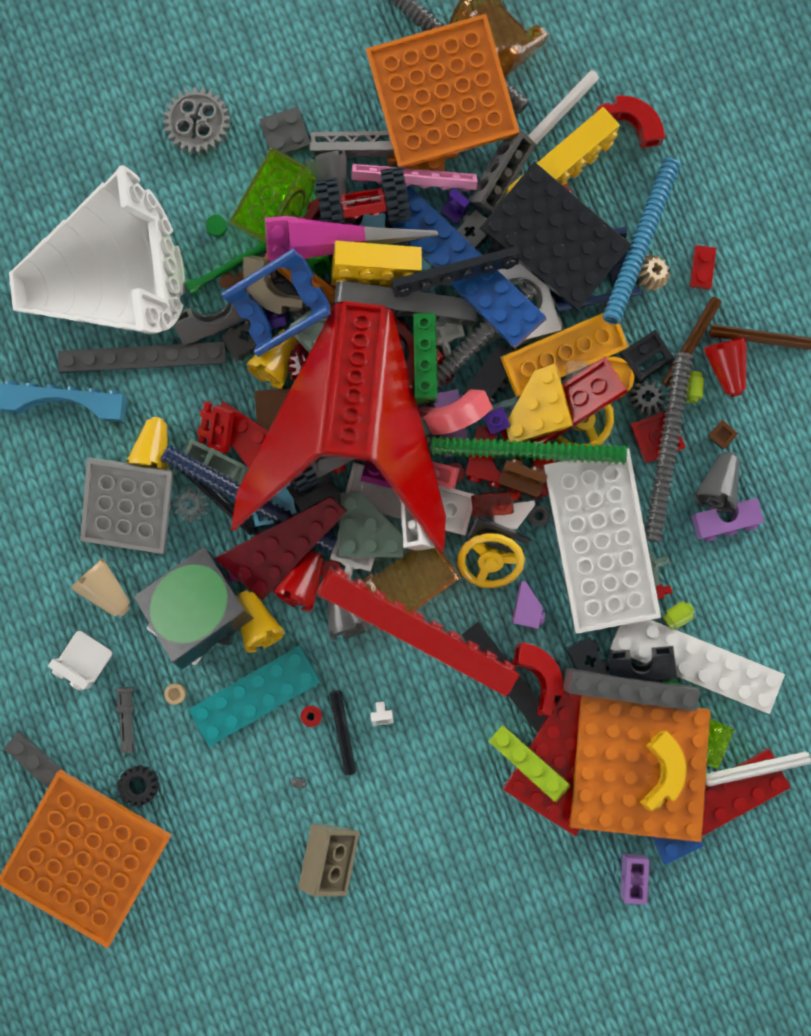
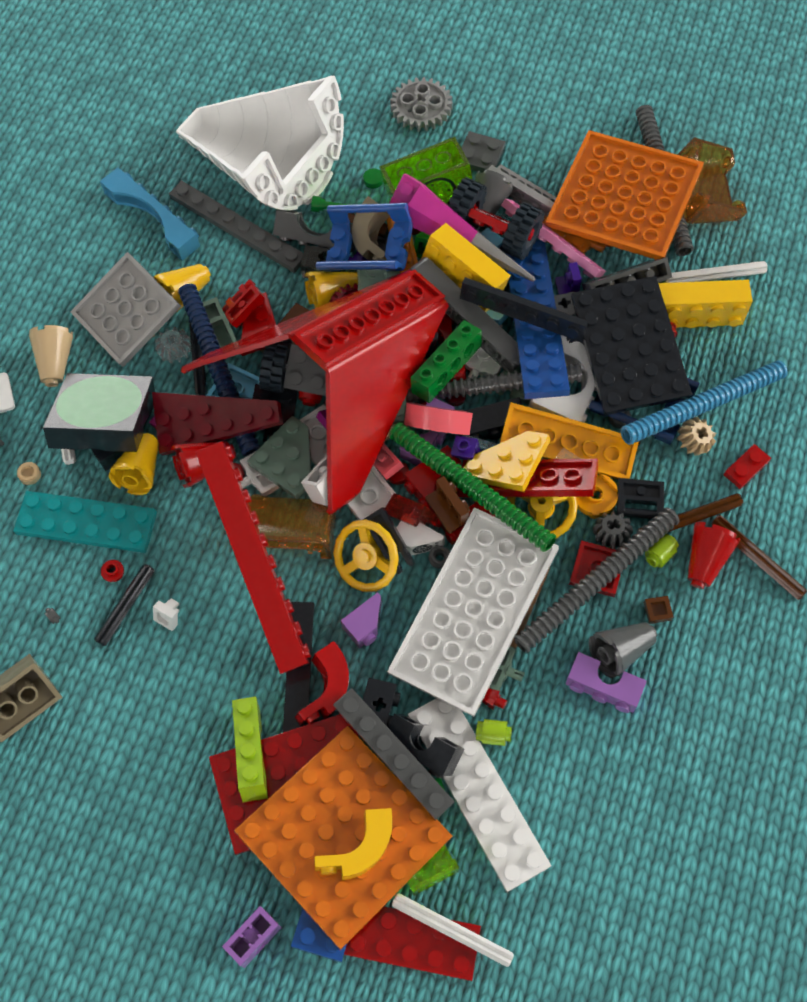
camera: 40 degrees right, 20 degrees down
(344, 623) = (203, 516): dark grey cone -> none
(640, 116) = (779, 315): red arch -> none

